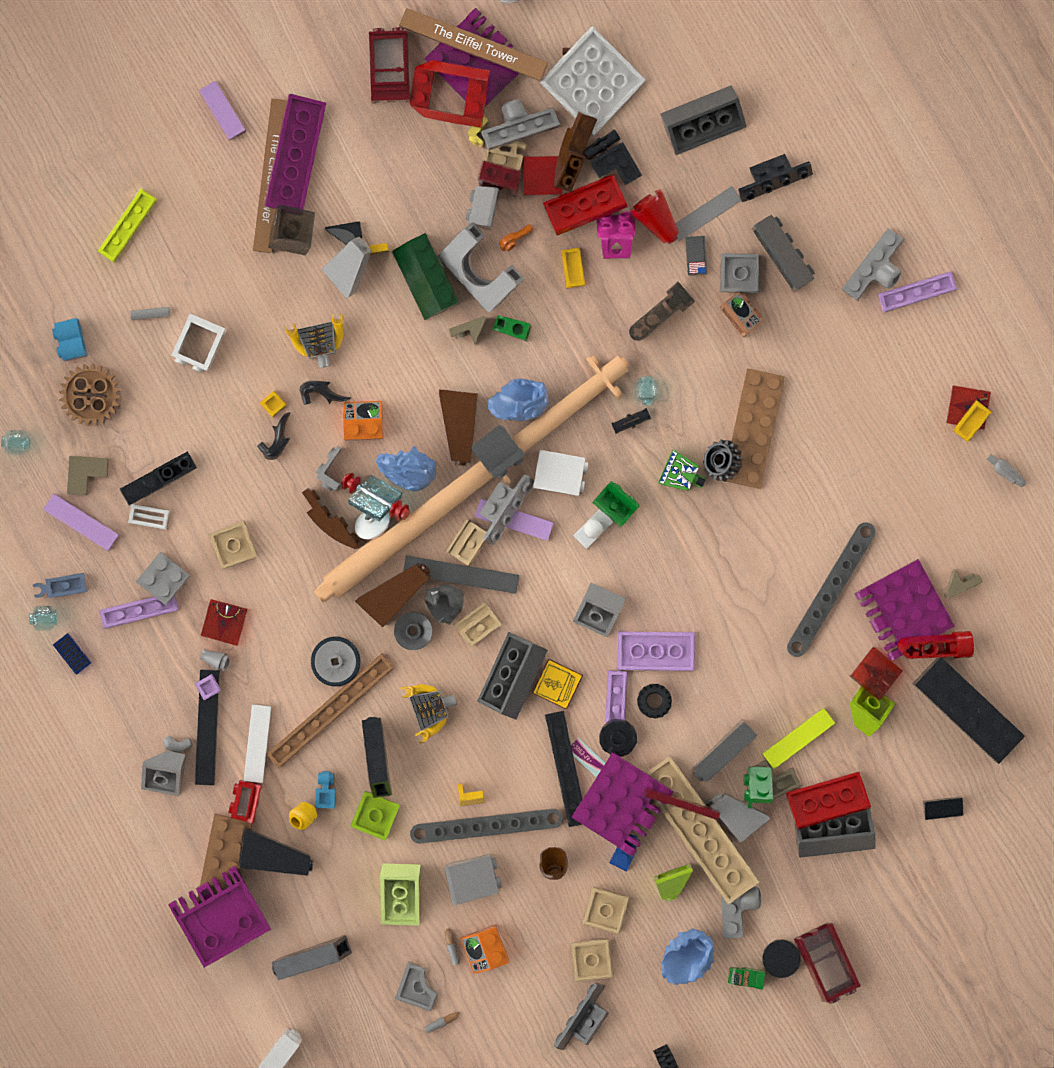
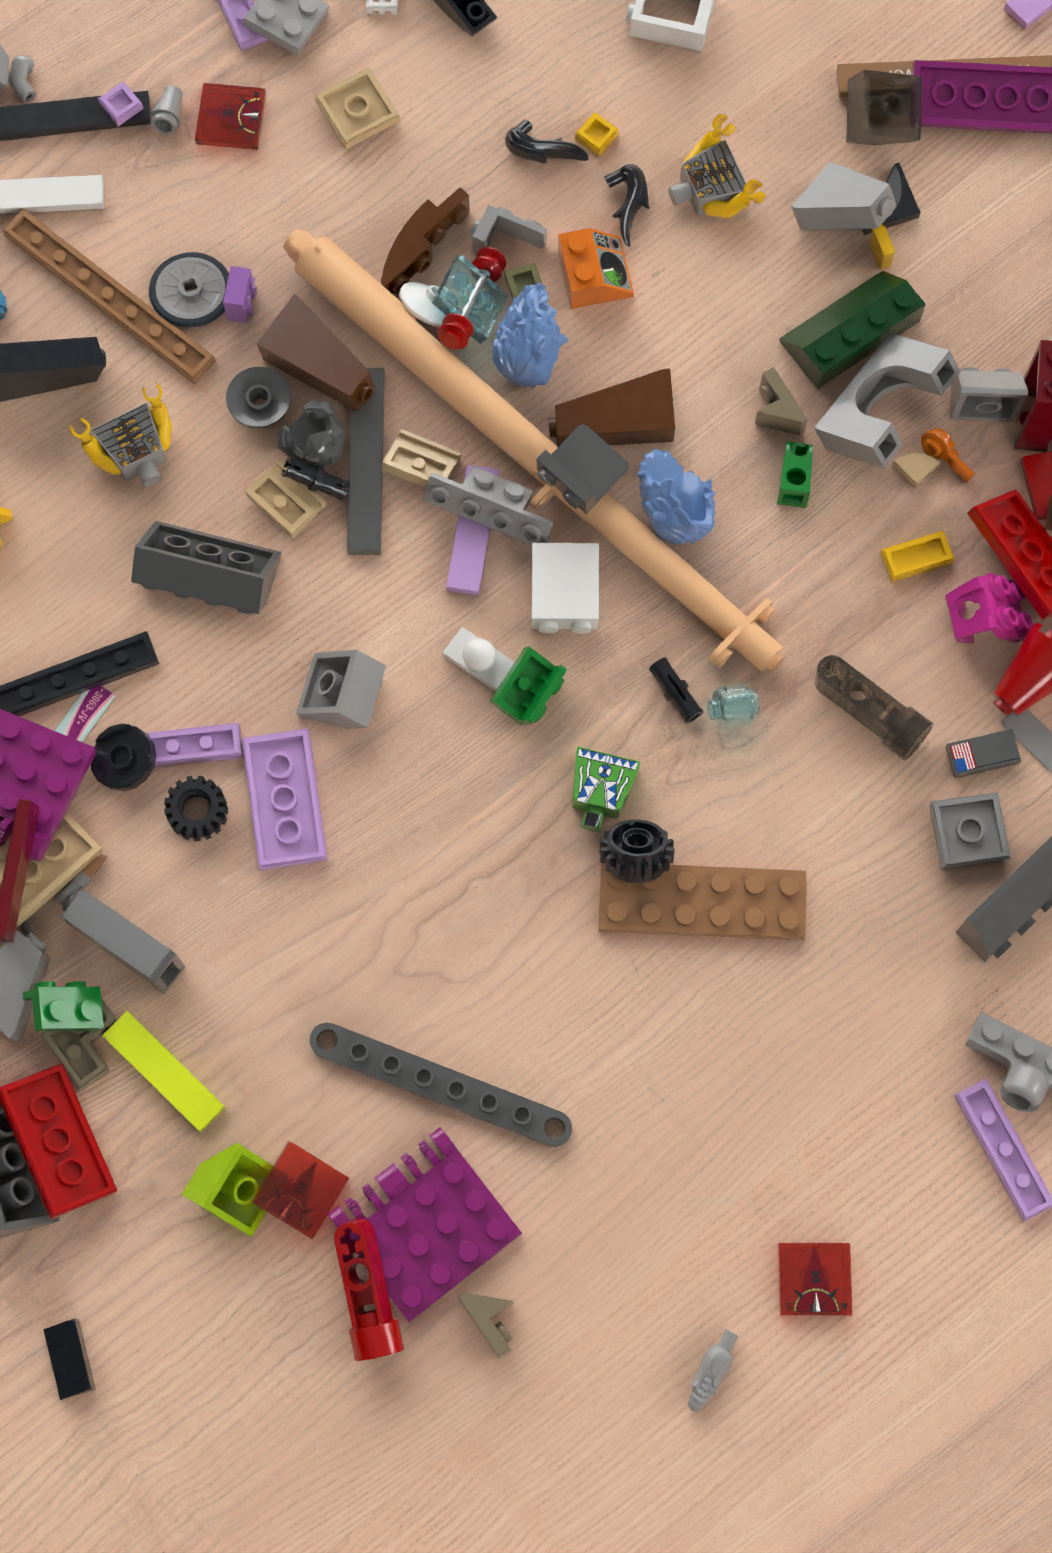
camera: 80 degrees right, 15 degrees down
(346, 633) = (239, 294): none -> medium lavender piece
(367, 464) = (520, 277): none -> olive tile
(471, 605) = (315, 478): none -> black pin
(519, 256) = (916, 467): none -> tan tile
(557, 684) = (203, 644): yellow tile -> none
(684, 770) = (81, 880): none -> light grey piece
(741, 314) = (900, 840): slope -> none
(968, 709) = (256, 1374): black brick -> none
(971, 421) = (791, 1287): yellow tile -> none

